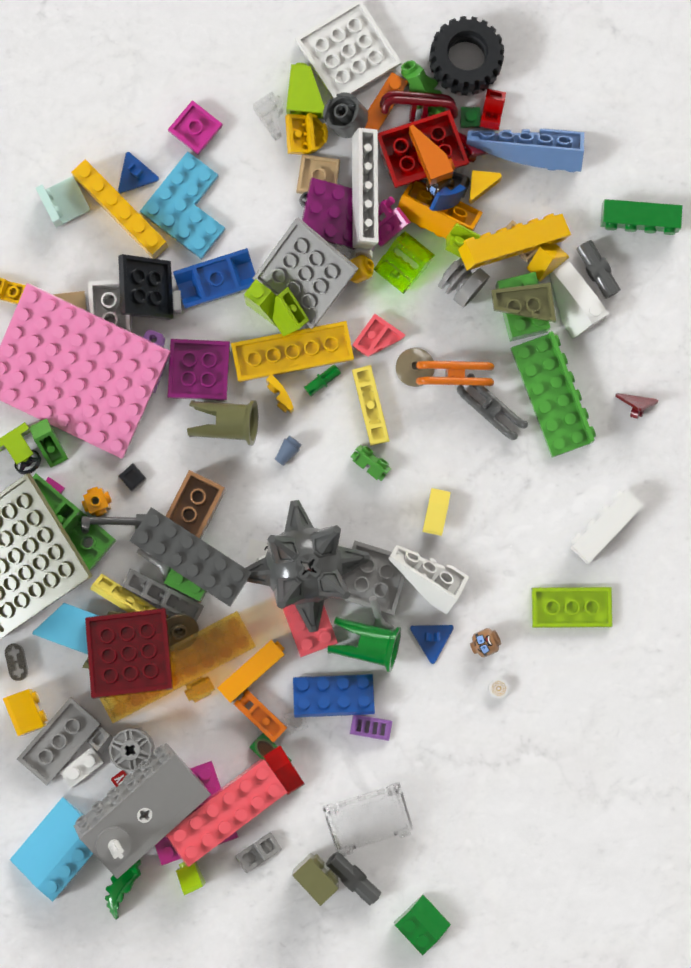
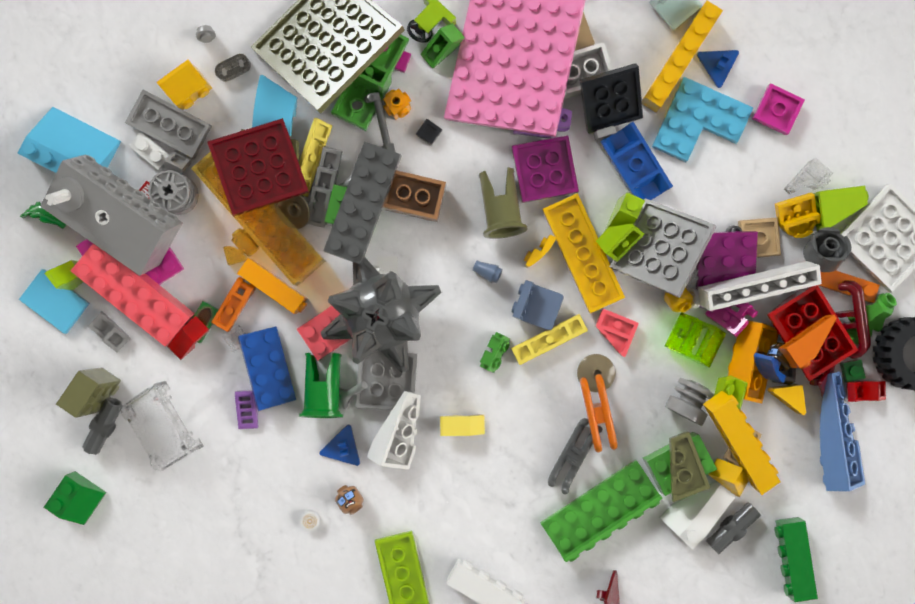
camera: 85 degrees right, 5 degrees up
(210, 704) = (234, 255): none -> clear yellow tile
(213, 903) = (55, 305): none -> medium azure tile
(322, 380) = (562, 287): green axle -> none
(334, 408) = (537, 305): none -> sand blue bracket

